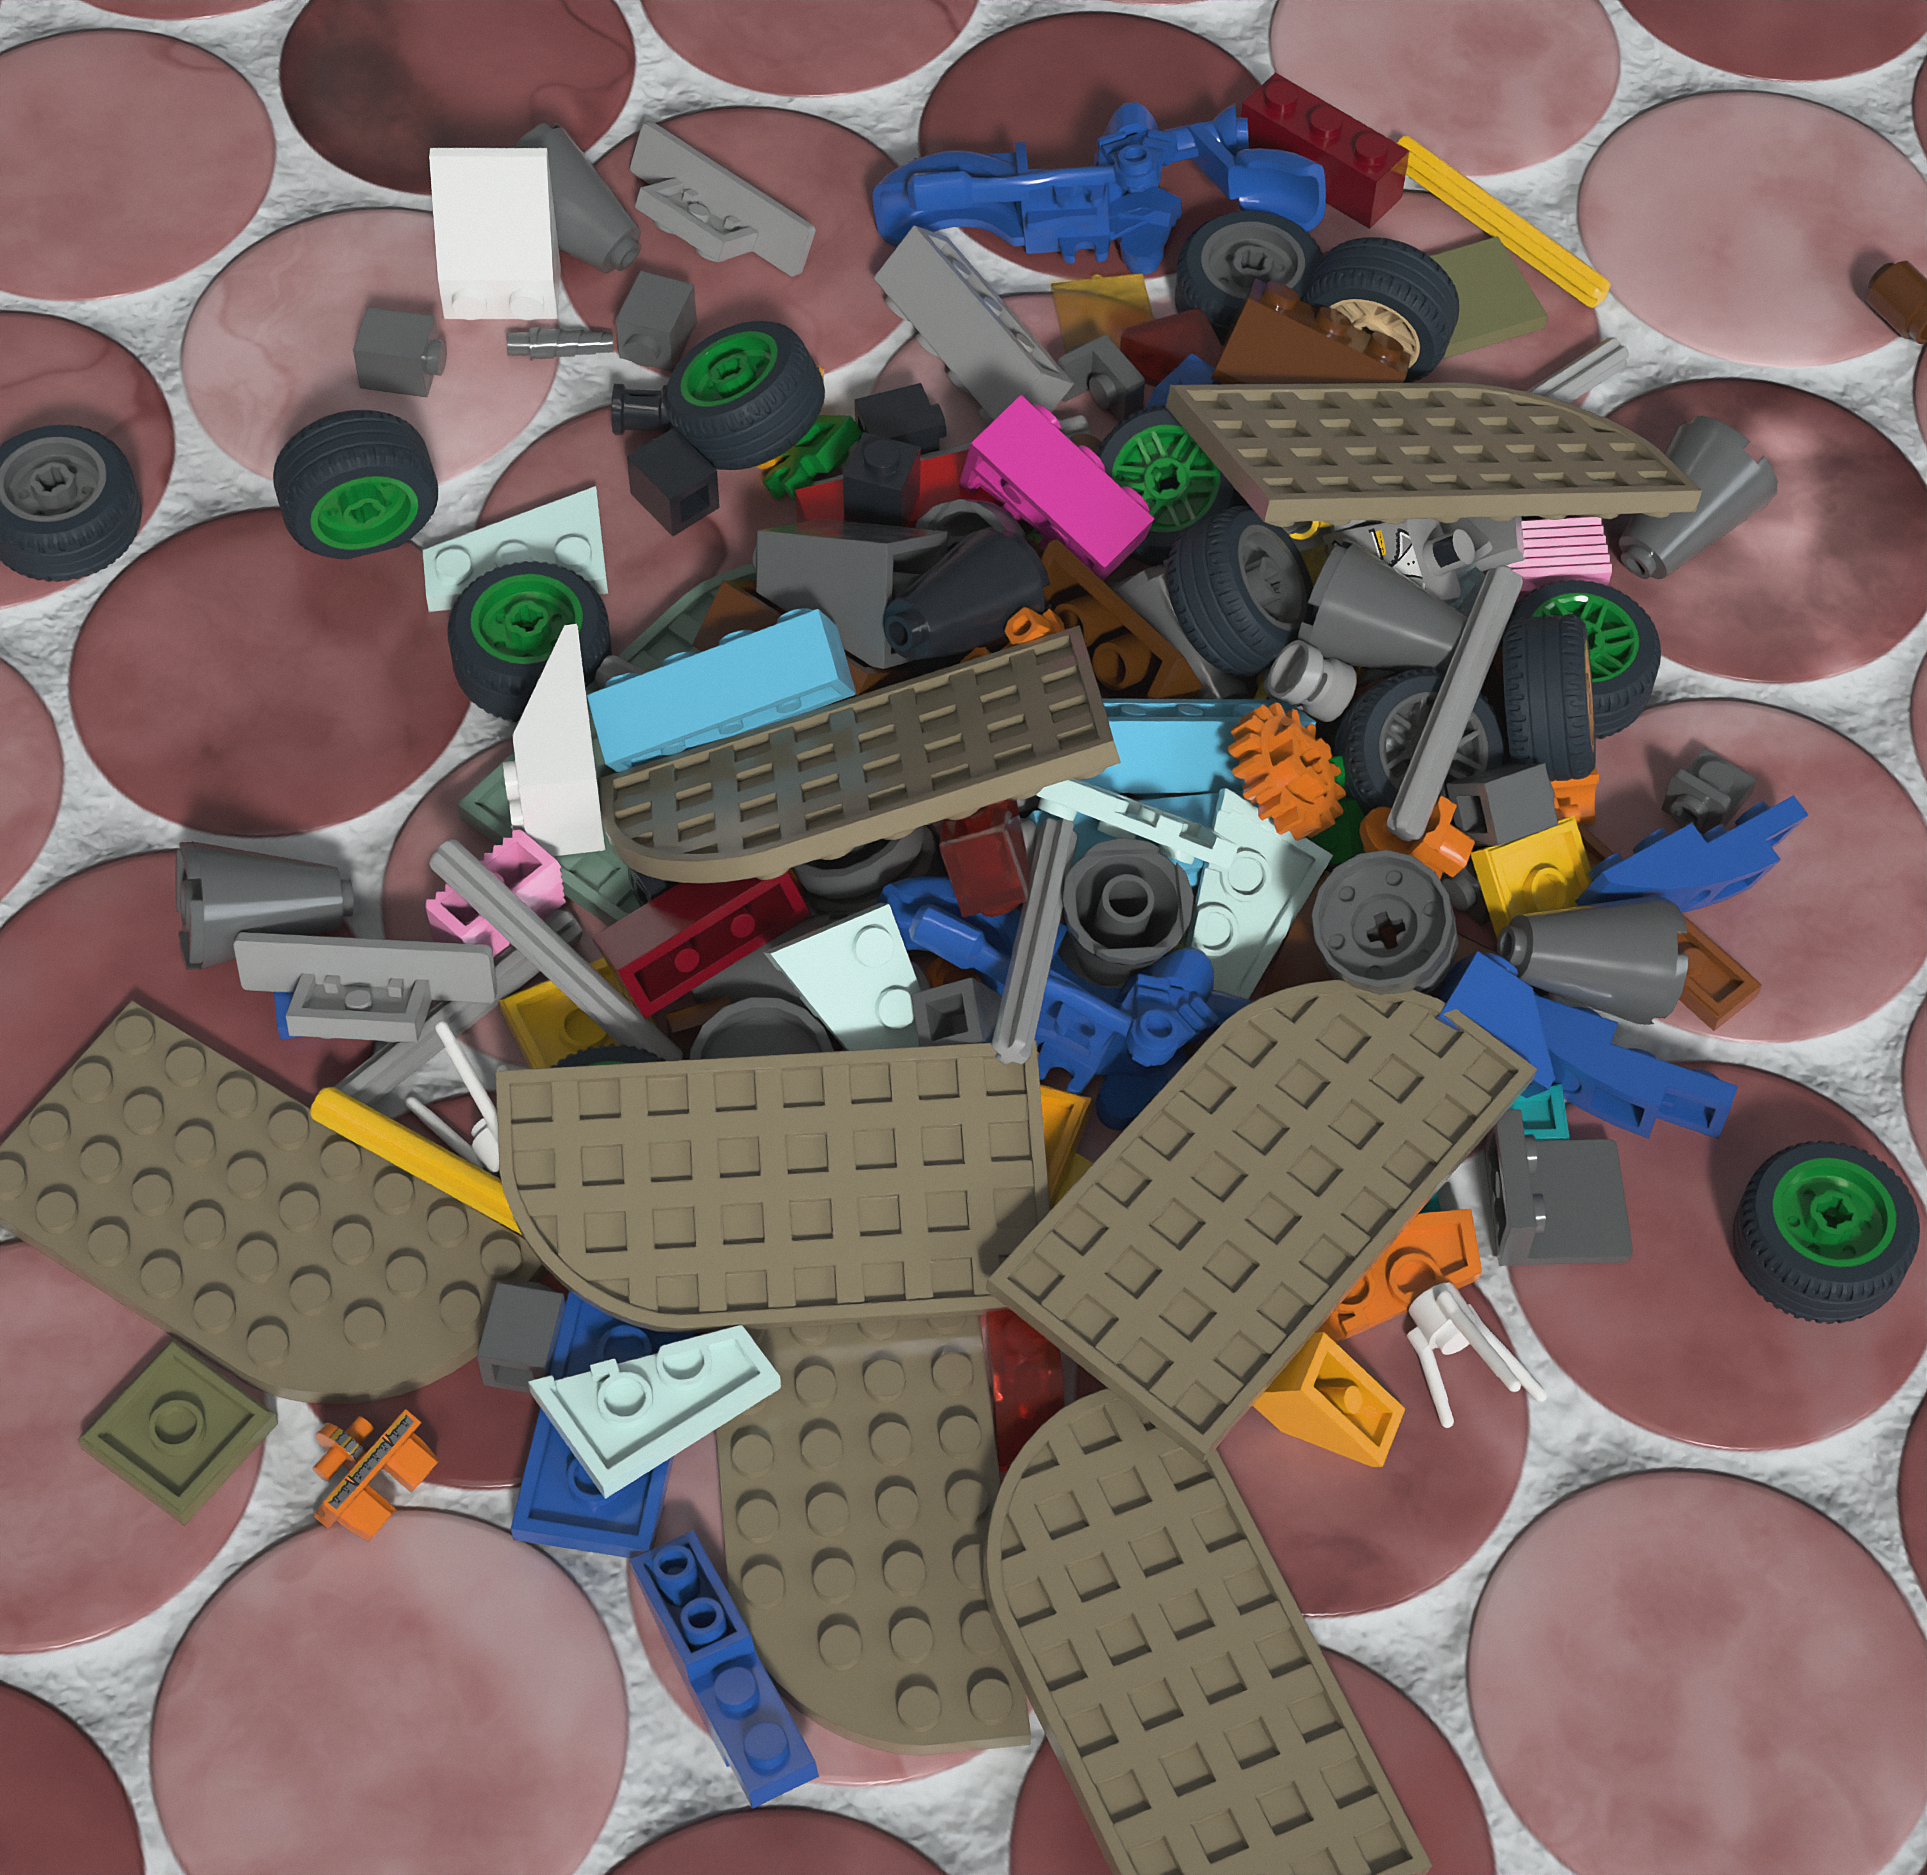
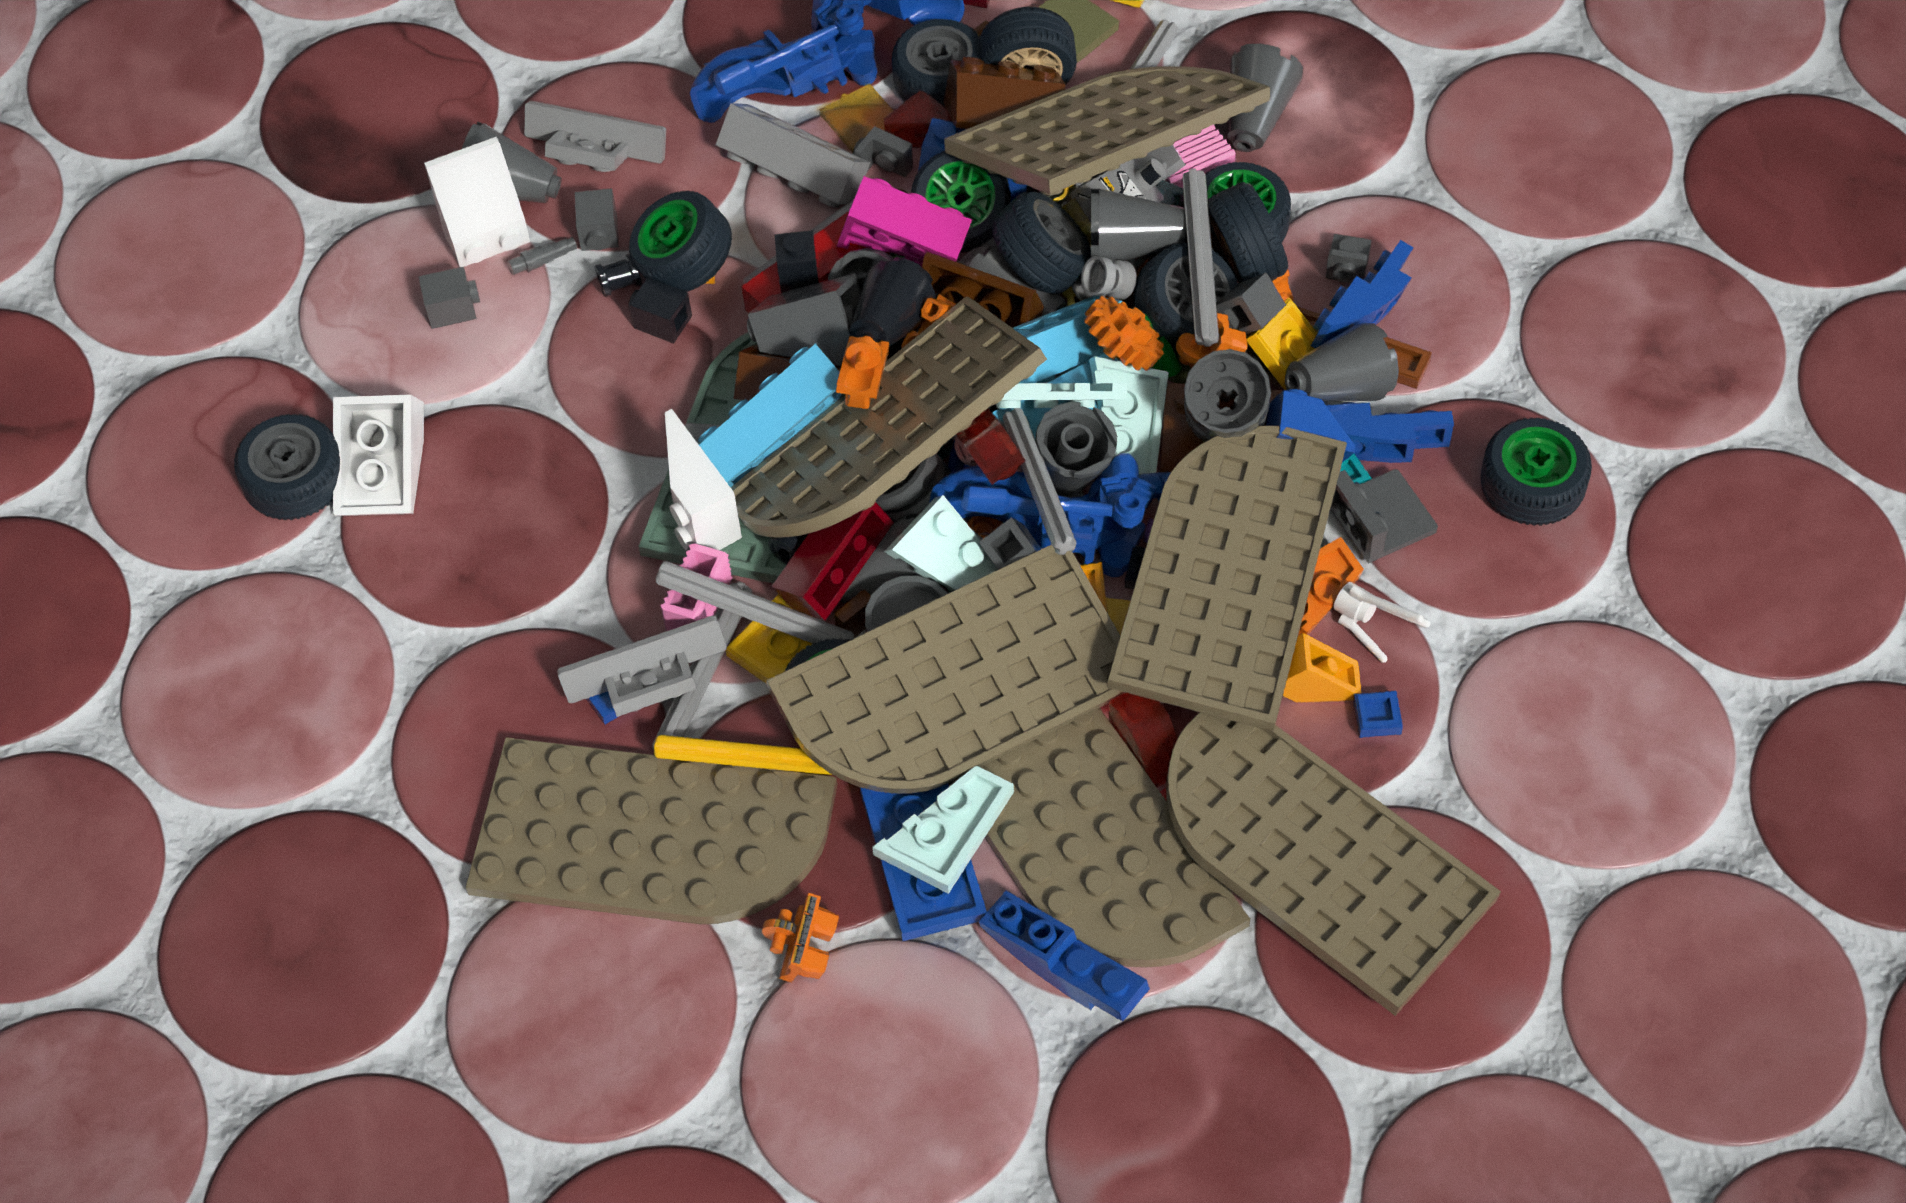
camera: 20 degrees left, 0 degrees up
(178, 1432) = (673, 966): olive tile -> none
(184, 531) = (378, 454): none -> white slope
(251, 892) = (539, 648): dark grey cone -> none
(355, 484) = (473, 384): black wheel -> none
(485, 1148) = (769, 724): white plant -> none
(509, 626) = (624, 435): wheel -> none
(520, 1335) = (849, 828): dark grey brick -> none
(555, 533) = (592, 390): light aqua wing -> none
(819, 451) = (739, 260): green plate -> none
(866, 674) = (862, 370): none -> orange hips
(903, 417) = (773, 219): black brick -> none
(1392, 1503) = (1378, 714): none -> blue tile

